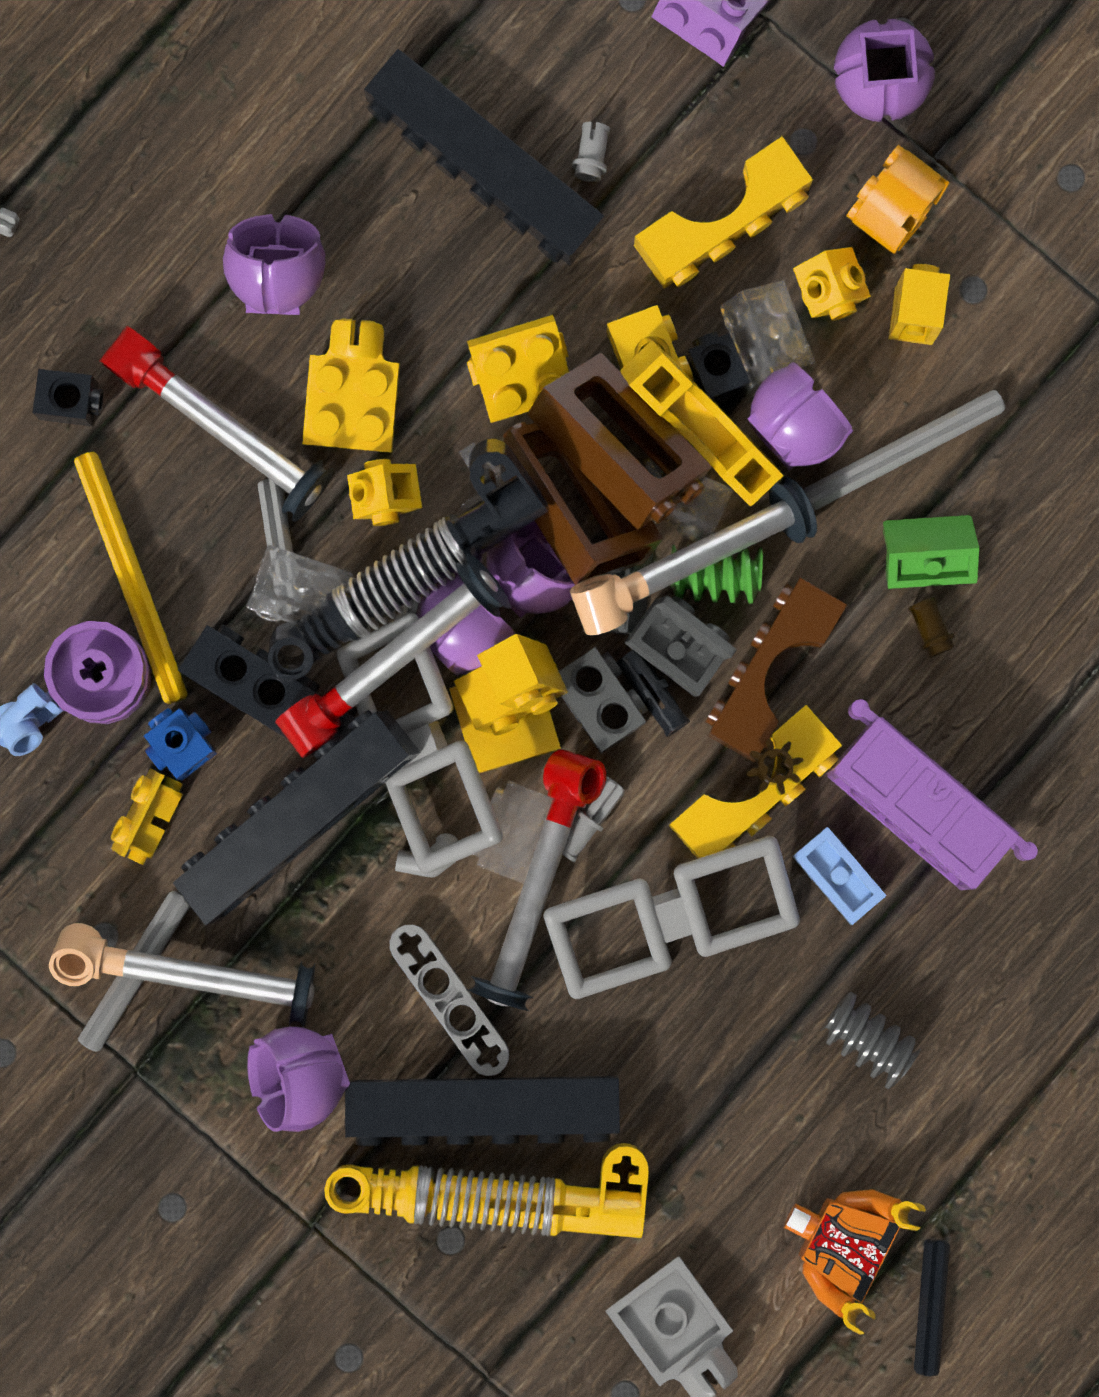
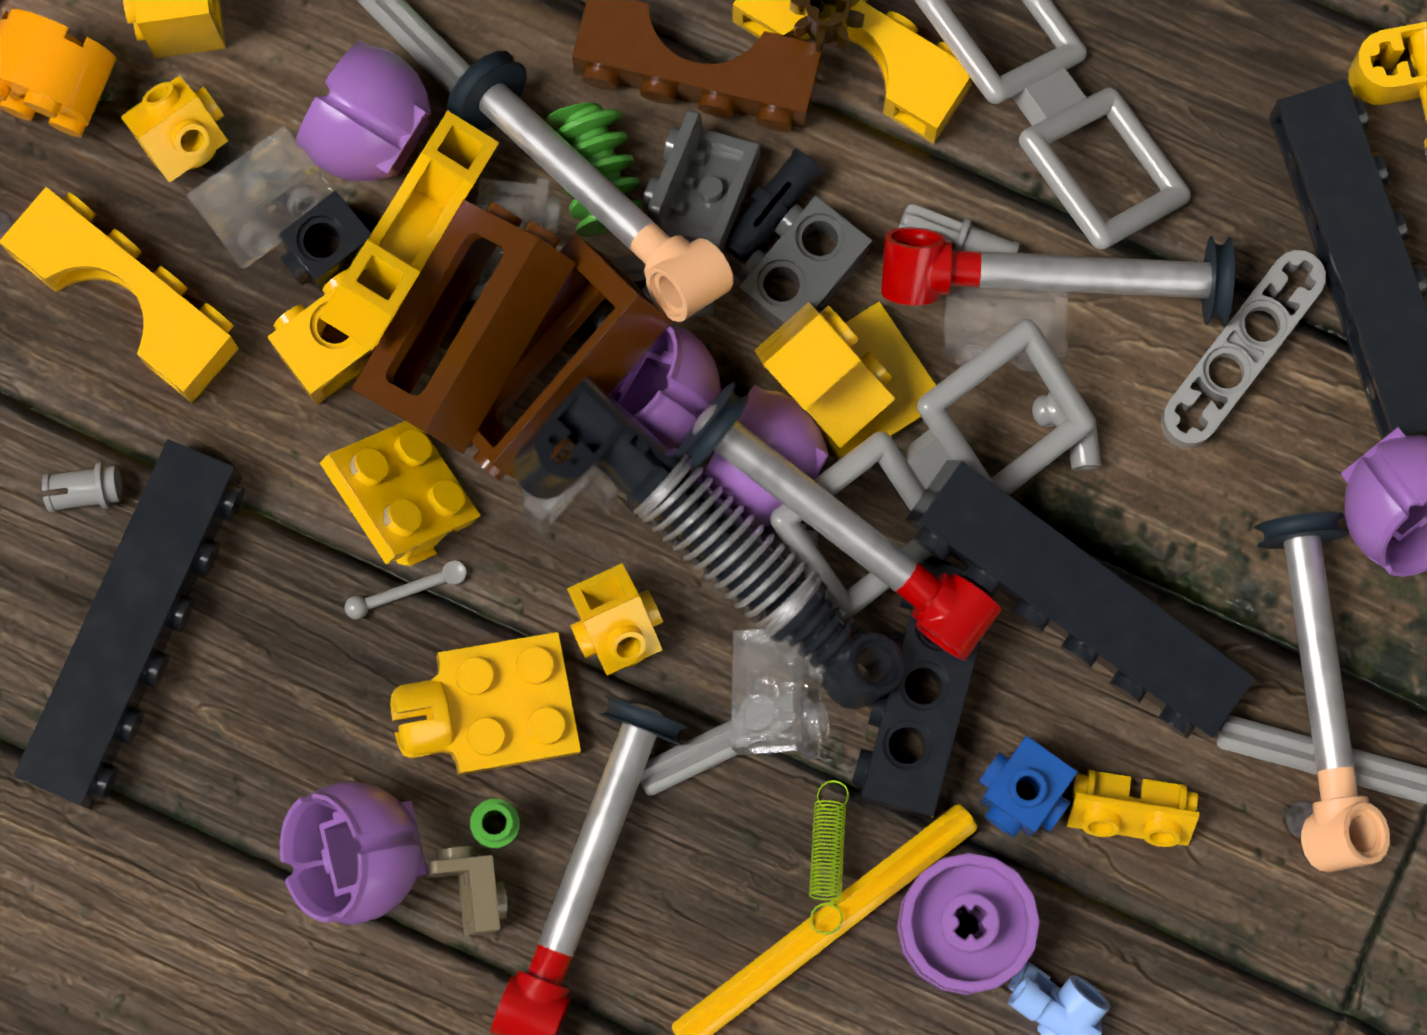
camera: 110 degrees left, 5 degrees down
(166, 597) = (833, 874): none -> lime piece
(220, 346) = (480, 896): none -> dark tan bracket
(264, 359) = (481, 817): none -> bright green pin
(456, 392) = (453, 574): none -> light grey hinge

